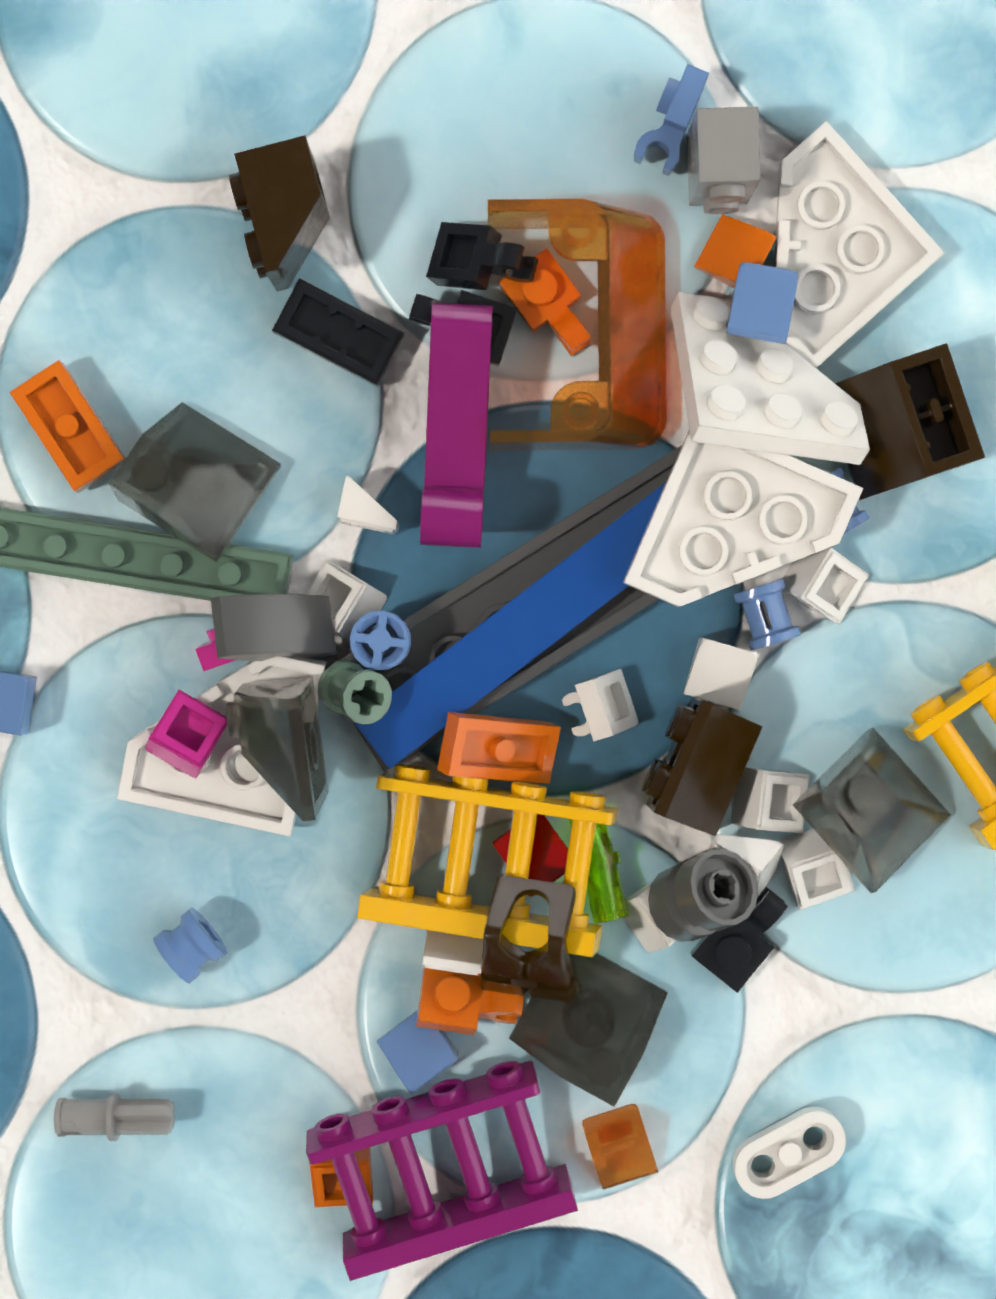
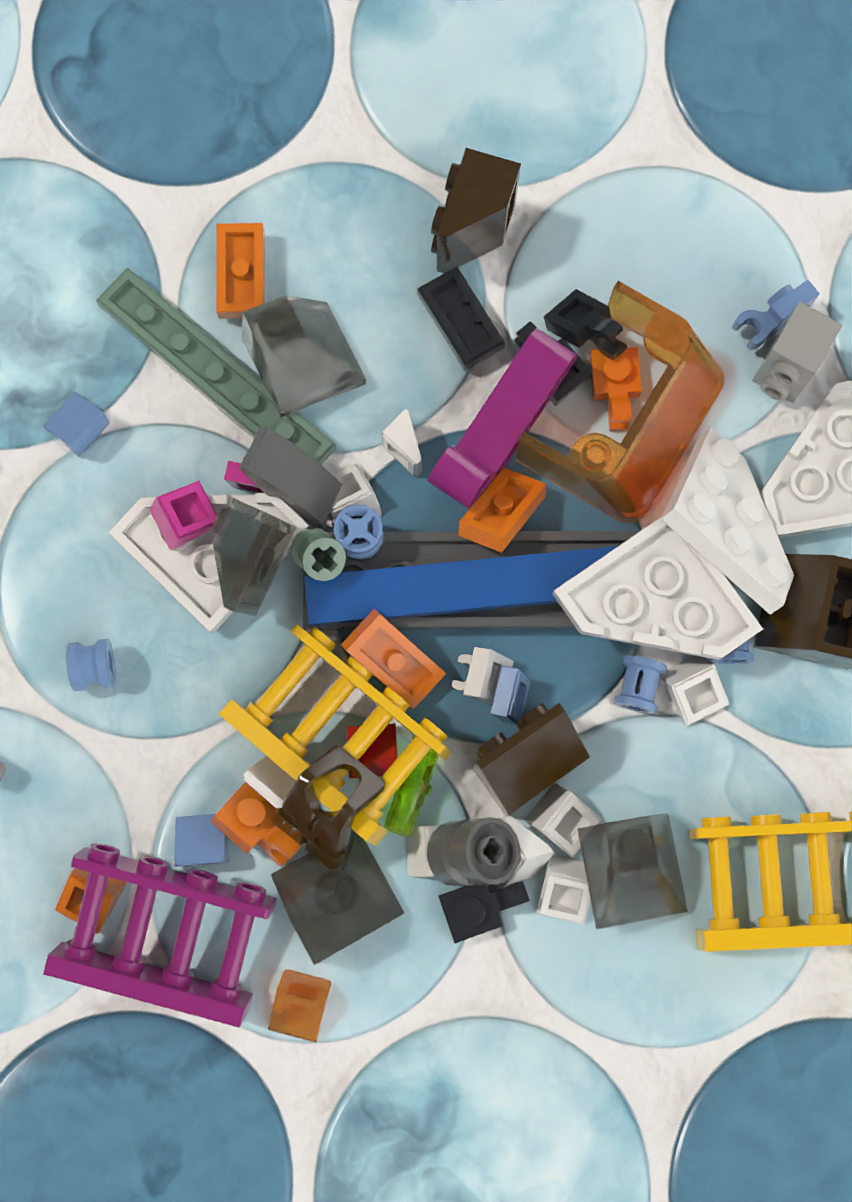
camera: 30 degrees right, 10 degrees down
(514, 521) = (502, 510): none -> orange plate
(641, 709) = (510, 695): none -> medium blue tile
(720, 673) = (585, 704): white slope -> none
(730, 246) = (766, 428): orange slope -> none
(762, 302) = (766, 464): medium blue slope -> none
(791, 1157) = (420, 1092): white plate -> none

